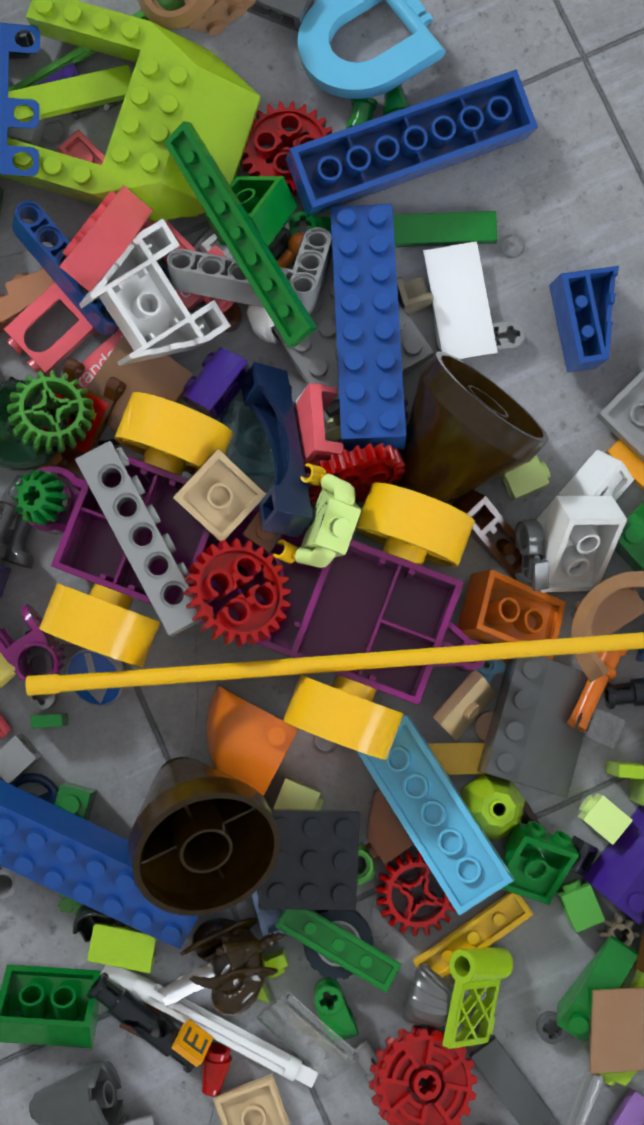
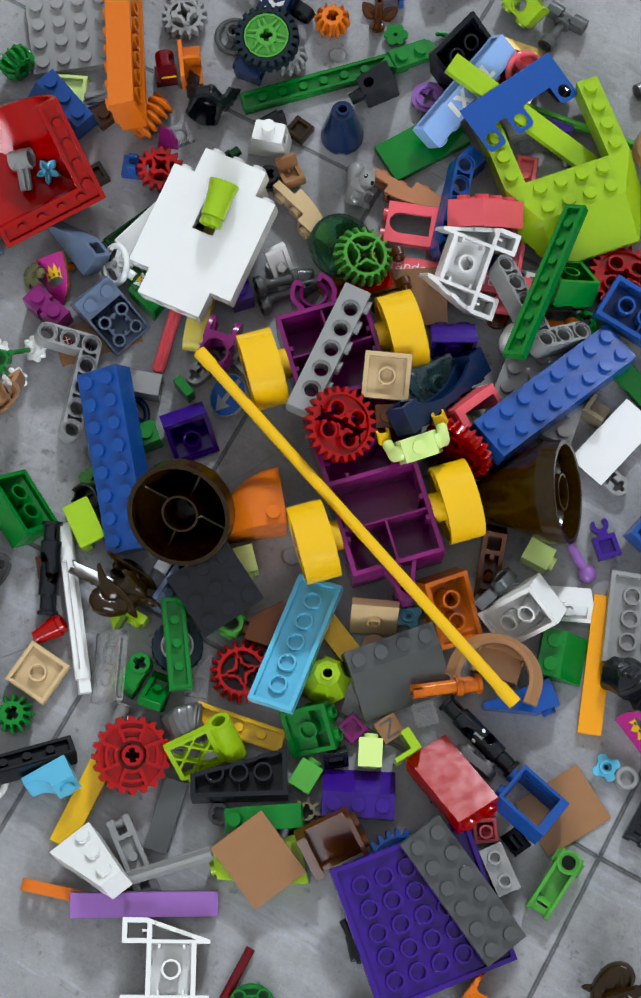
camera: 50 degrees right, 10 degrees down
(19, 195) = (479, 160): none -> blue slope
(40, 497) = (309, 284): green gear -> none
(104, 752) = (189, 432): none -> dark purple slope
(192, 1042) = (58, 602): light orange tile -> none
(373, 1006) = (155, 693): none -> green slope
(541, 975) = (245, 780): none -> black wedge
(562, 815) = (352, 728): none -> magenta tile
(563, 398) = (604, 544): none -> dark purple plate
(577, 441) = (586, 573): none -> medium lavender bar
(591, 776) = (388, 728): none -> medium nougat tile

